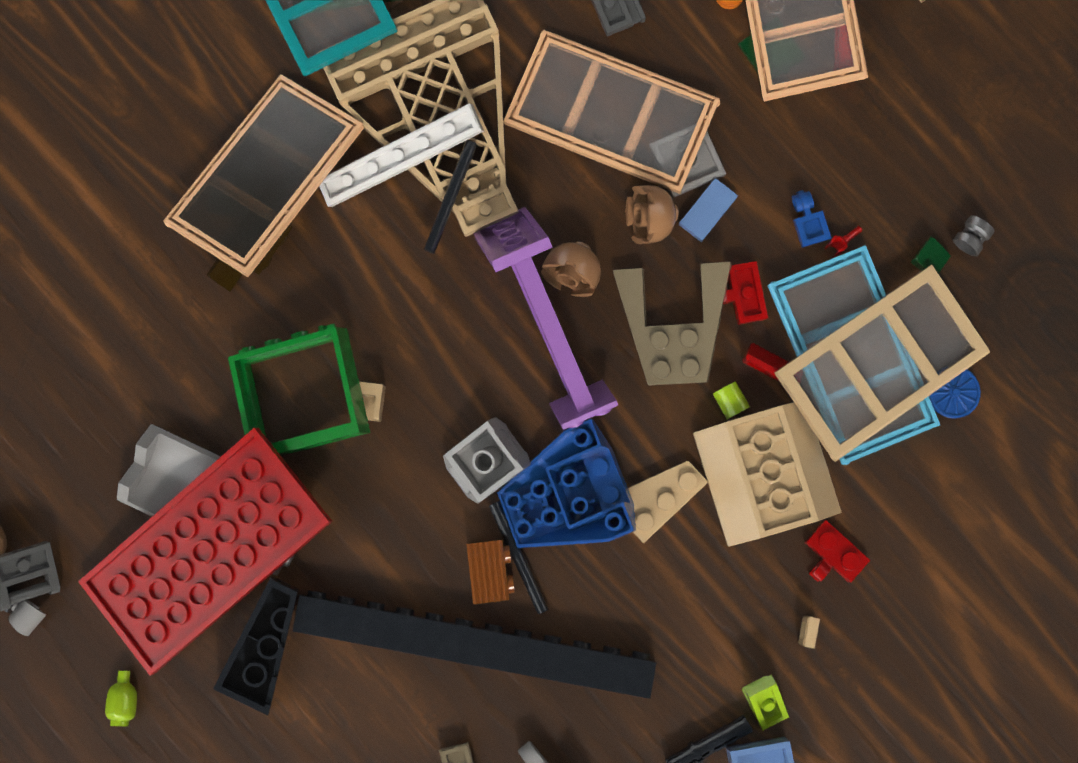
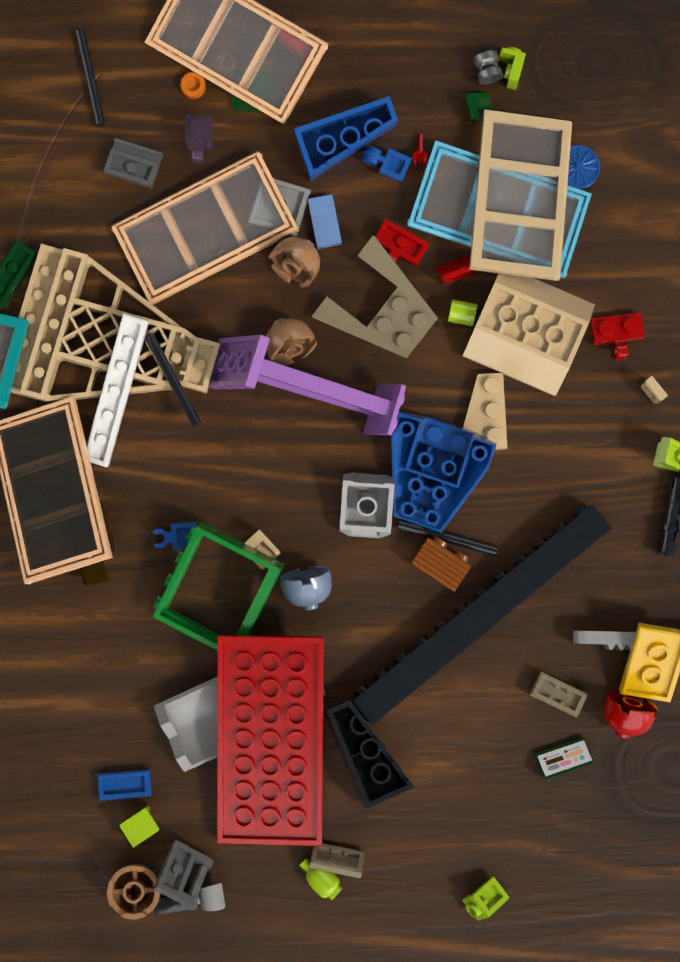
camera: 50 degrees left, 0 degrees up
(35, 501) = (139, 826): none -> lime panel
(64, 457) = (124, 784): none -> blue tile
(149, 701) = (337, 860): none -> dark tan plate
(318, 317) = (176, 536): none -> blue plate
(367, 470) = (307, 587): none -> sand blue cylinder
(688, 36) = (199, 136): none -> clear purple brick
(796, 158) = (342, 134): none -> blue wedge
(1001, 255) = (515, 61): none -> lime bracket

